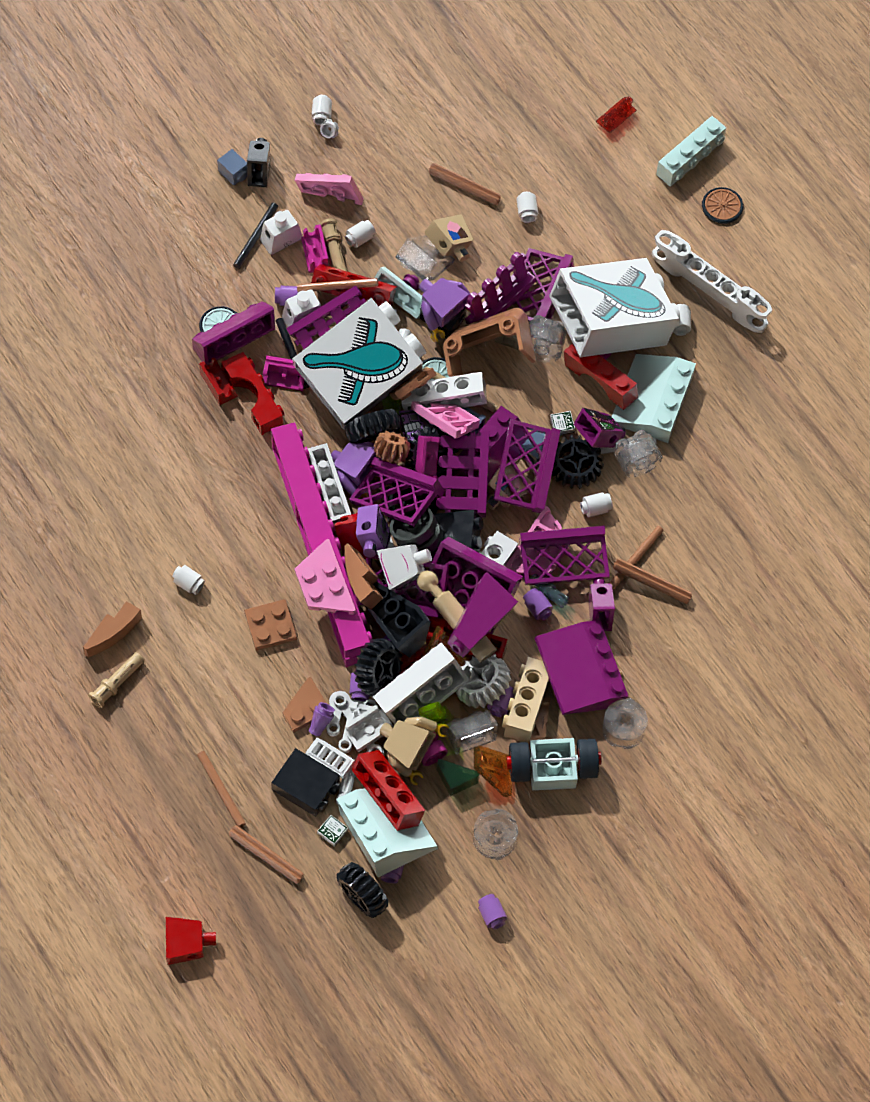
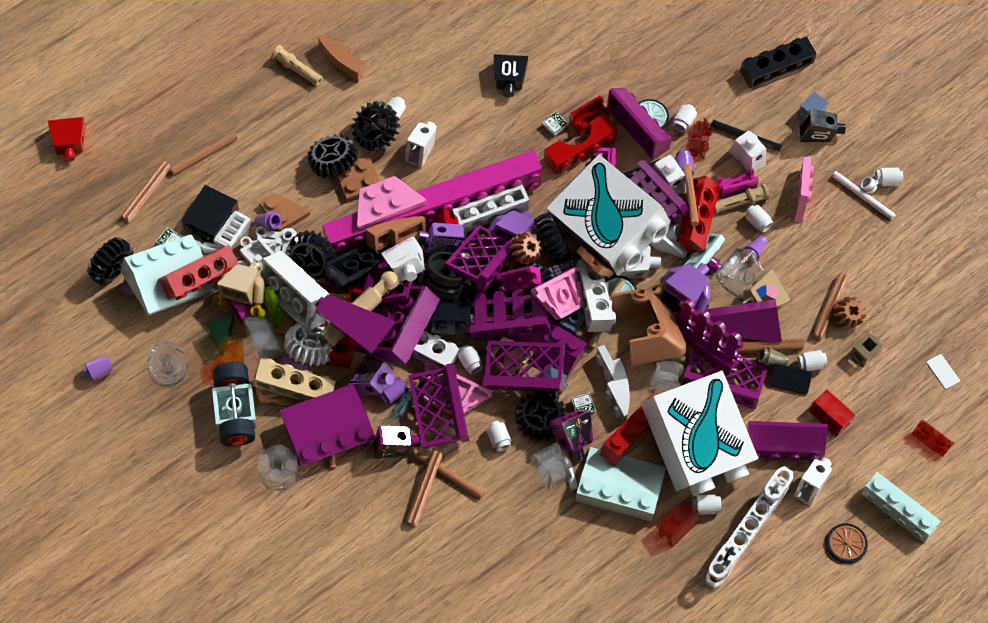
camera: 85 degrees right, 0 degrees up
(154, 455) = (509, 72): none -> black torso
(164, 166) = (772, 69): none -> black brick
(200, 581) = (385, 120): none -> black gear
(222, 418) = (554, 124): none -> tile
(230, 289) = (684, 118): none -> white brick
(232, 655) = (332, 156): none -> black gear
(238, 551) = (423, 137): none -> white torso
(249, 275) = (702, 131): none -> clear red hinge
(338, 137) = (866, 197): none -> white bar
(392, 241) = (757, 246): none -> medium lavender cone
(476, 165) = (849, 319): none -> nougat gear
(482, 252) = (750, 320): none -> magenta slope
(506, 238) = (785, 345): none -> nougat axle
(506, 523) = (470, 359): none -> white brick
(518, 156) = (860, 350): none -> dark tan brick
(522, 241) = (769, 357): none -> dark tan cone
(525, 619) = (372, 377): none -> medium lavender torso
(542, 97) = (943, 371): none -> white sticker
(545, 229) = (791, 378): none -> black slope
(549, 385) = (617, 386): none -> white slope
(585, 197) = (832, 412): none -> red hinge
(620, 230) = (788, 440): none -> magenta slope
(660, 217) = (815, 476): none -> white torso
(701, 345) = (678, 523): none -> clear red hinge

